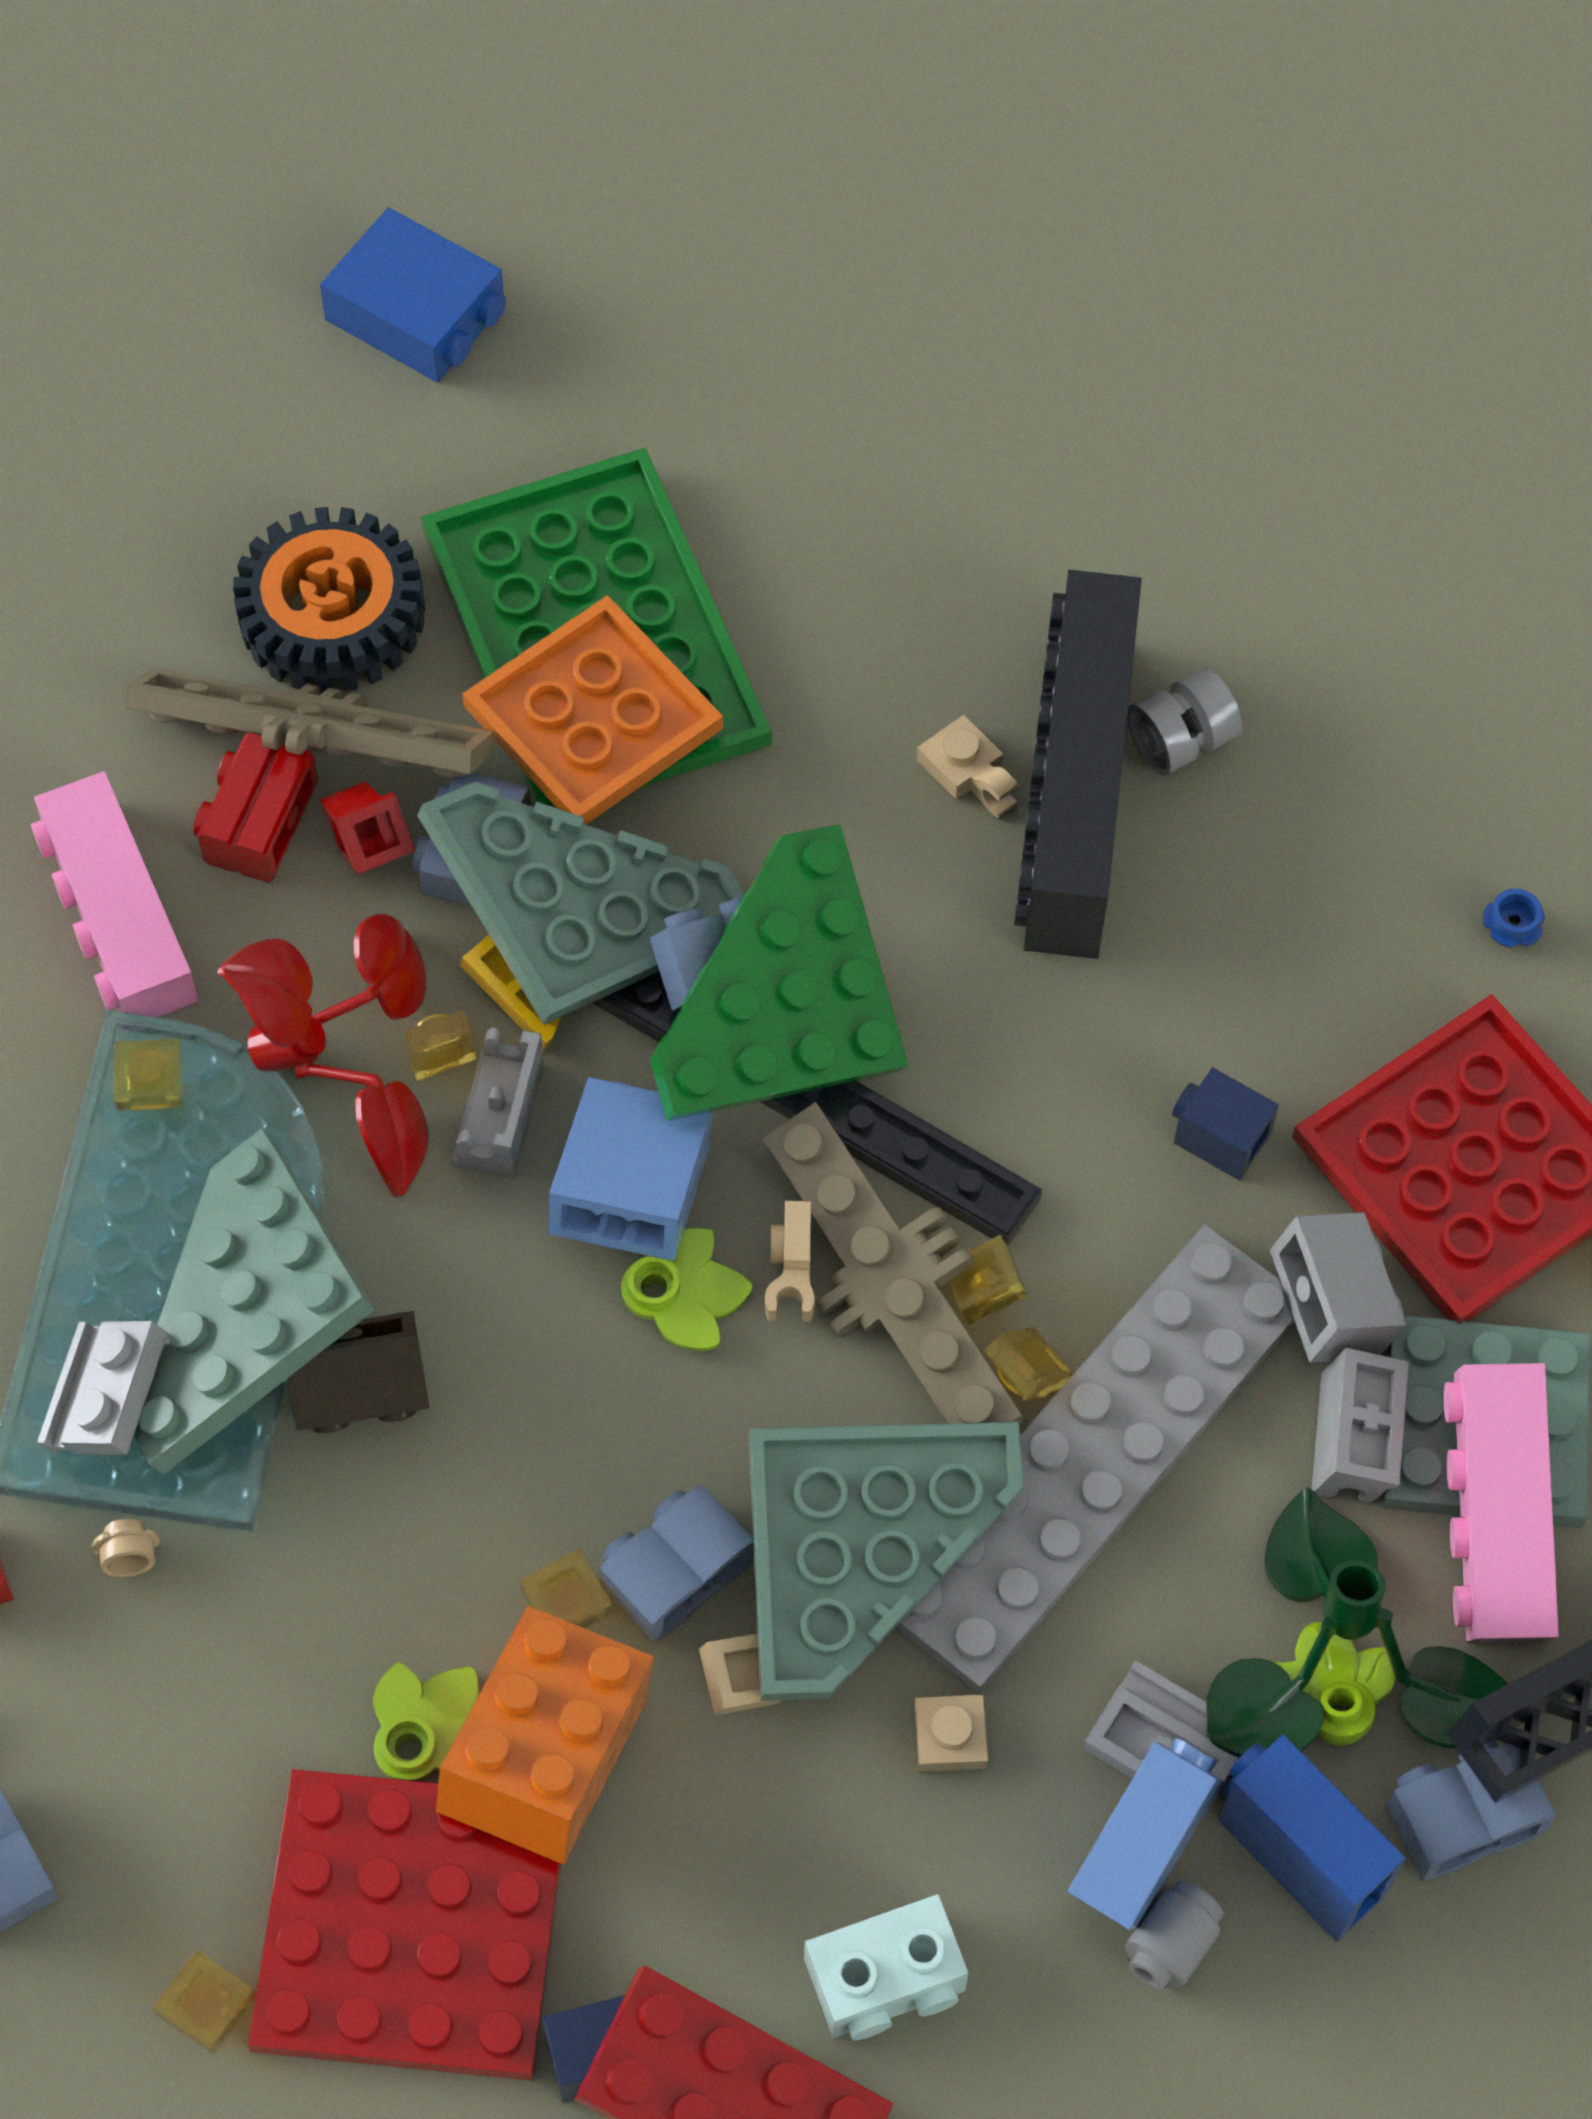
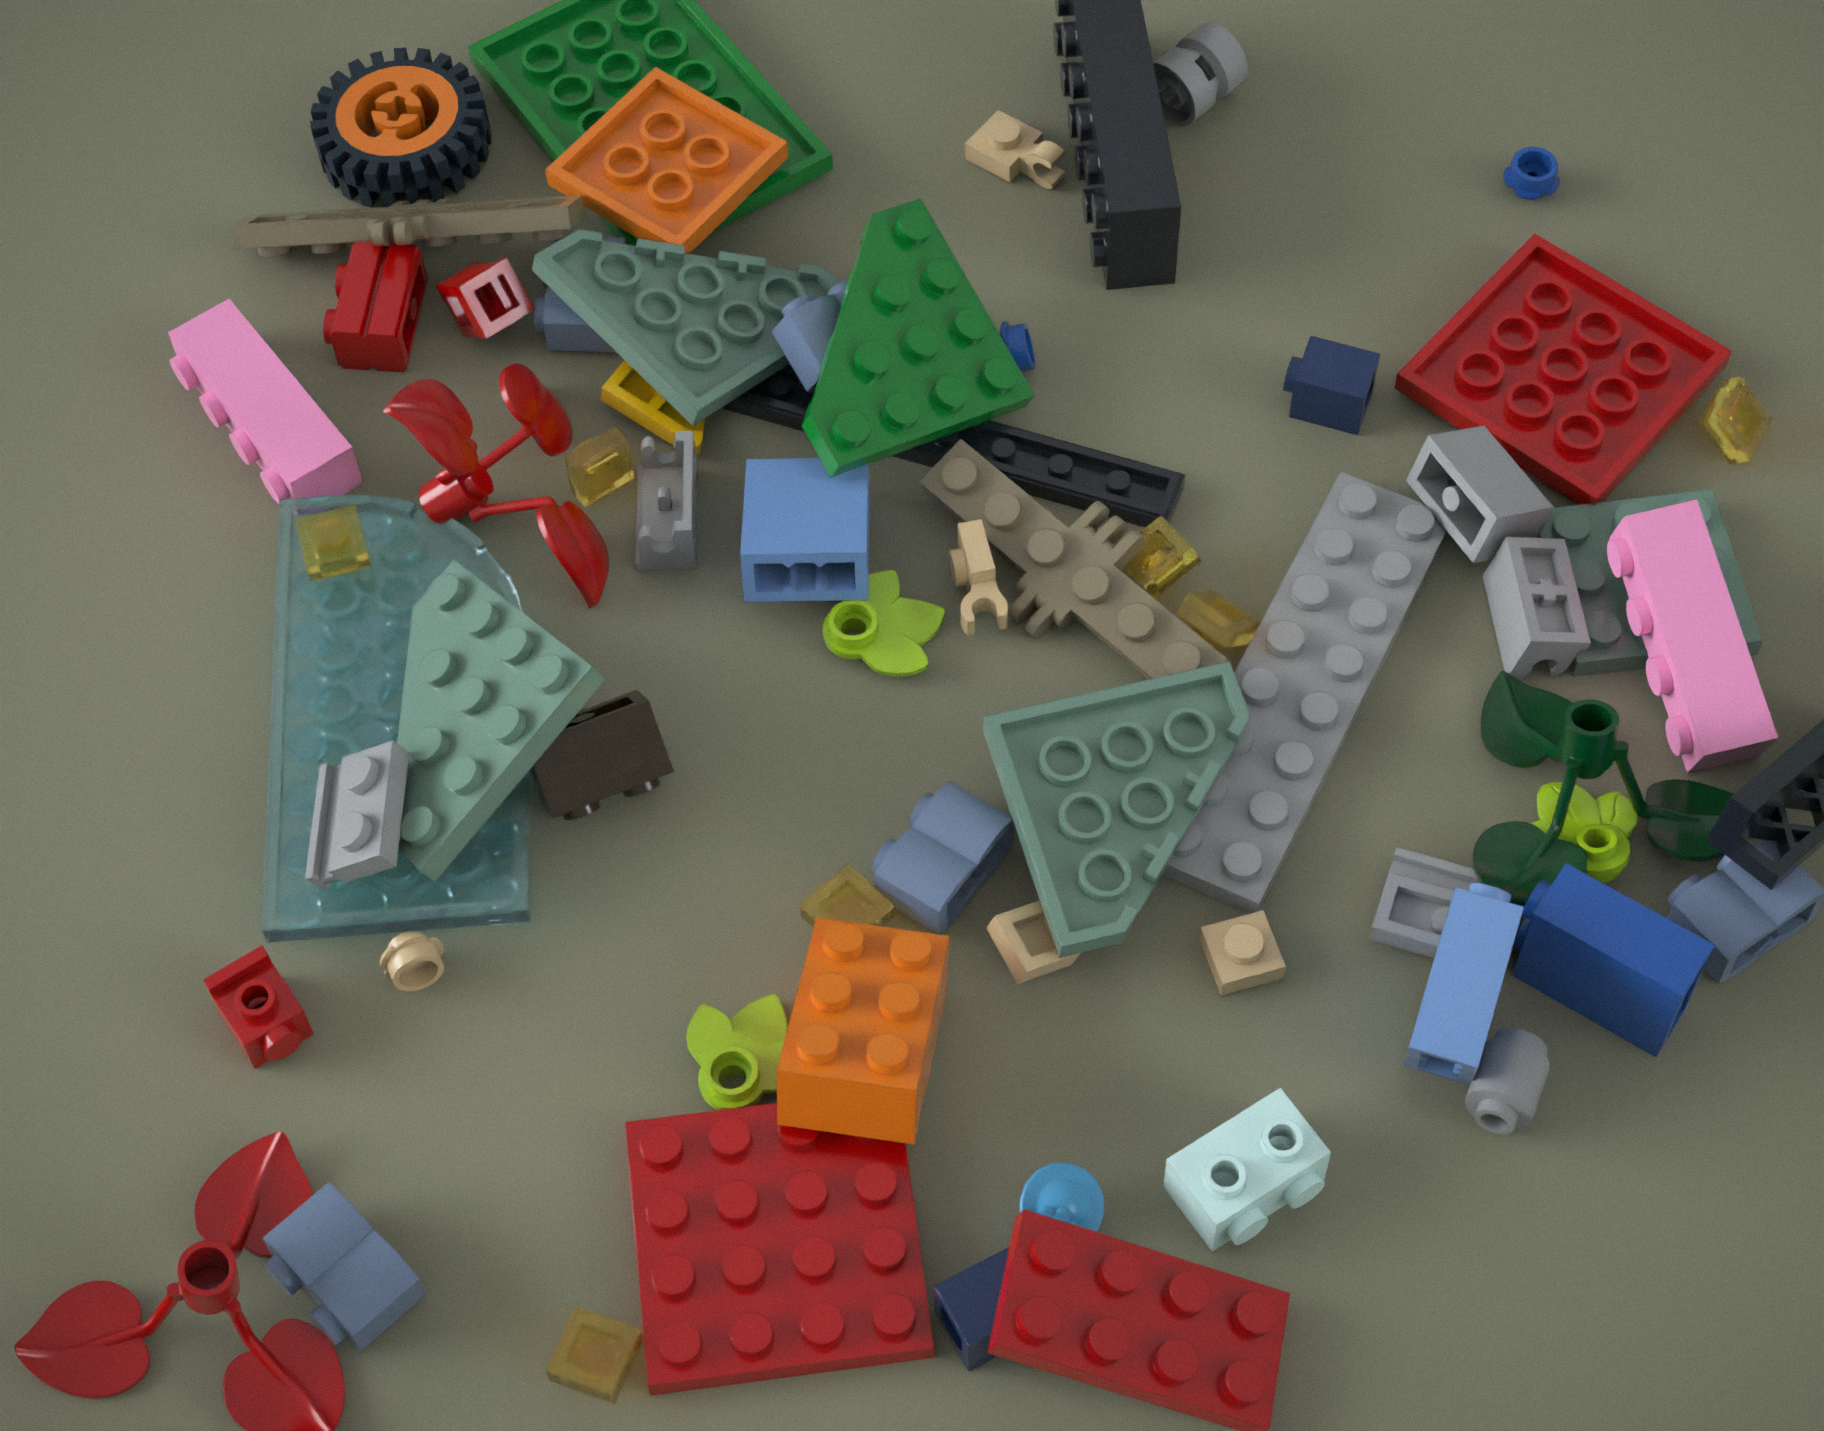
camera: 10 degrees left, 5 degrees down
(696, 1955) = (1064, 1194): none -> dark azure hat
(908, 1001) = (1019, 344): none -> blue plate

